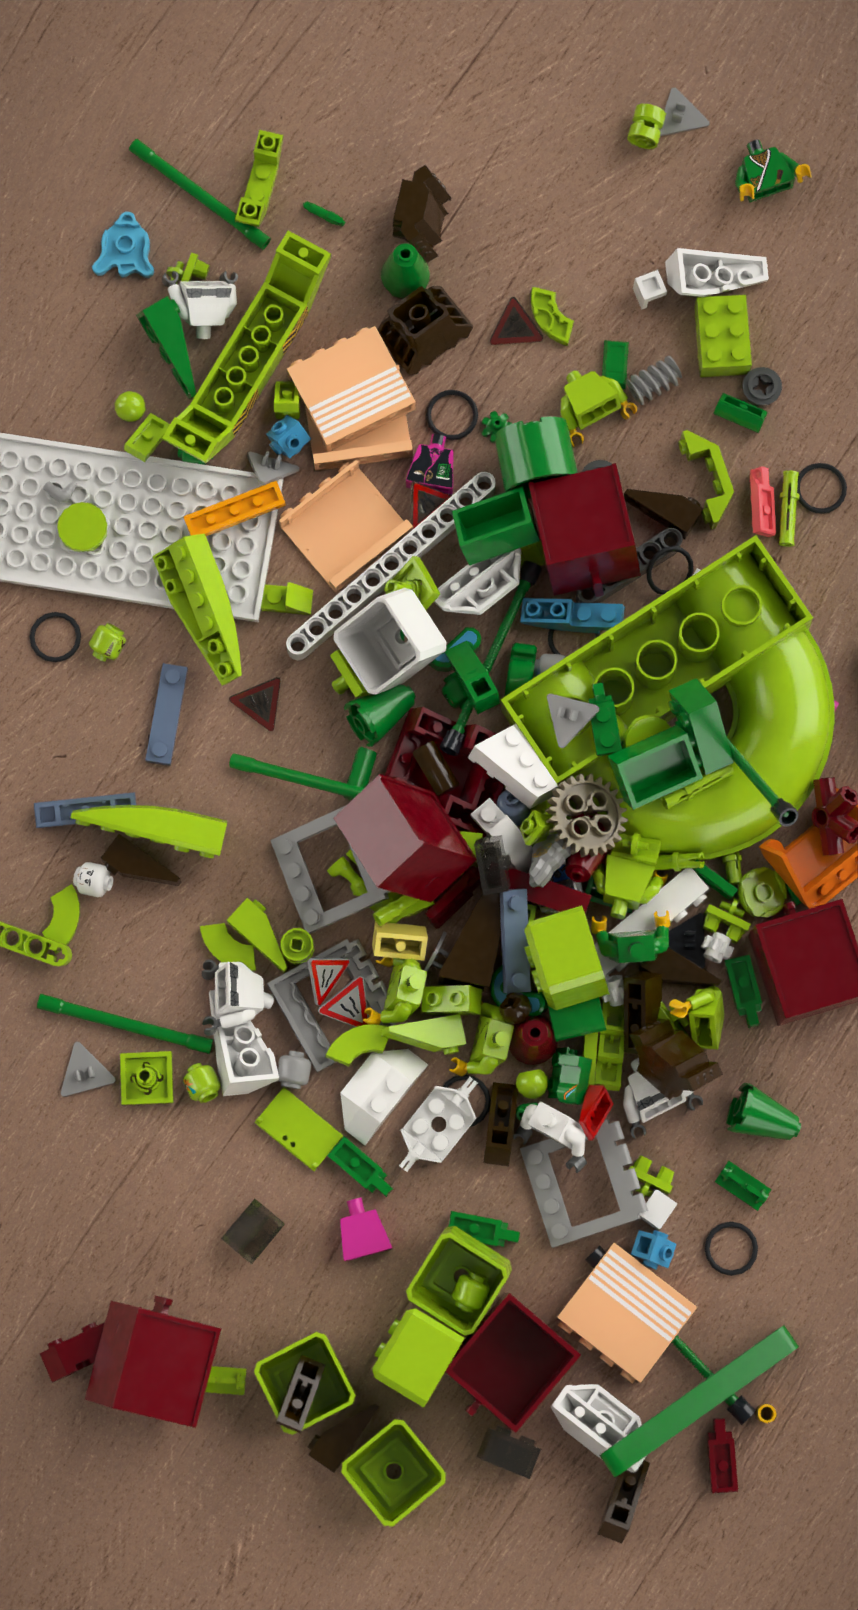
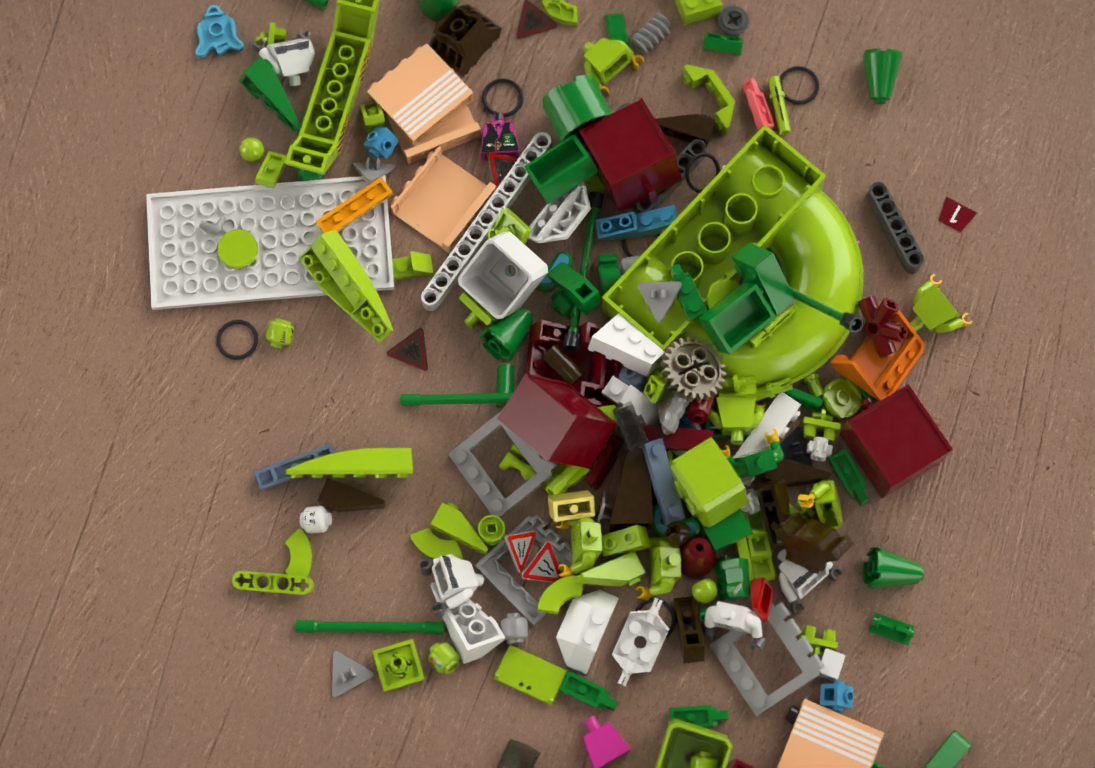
camera: 15 degrees left, 5 degrees down
(166, 714) = (340, 377): sand blue plate -> none
(491, 427) = (536, 97): green plant -> none
(754, 1245) = (896, 661): black piece -> none

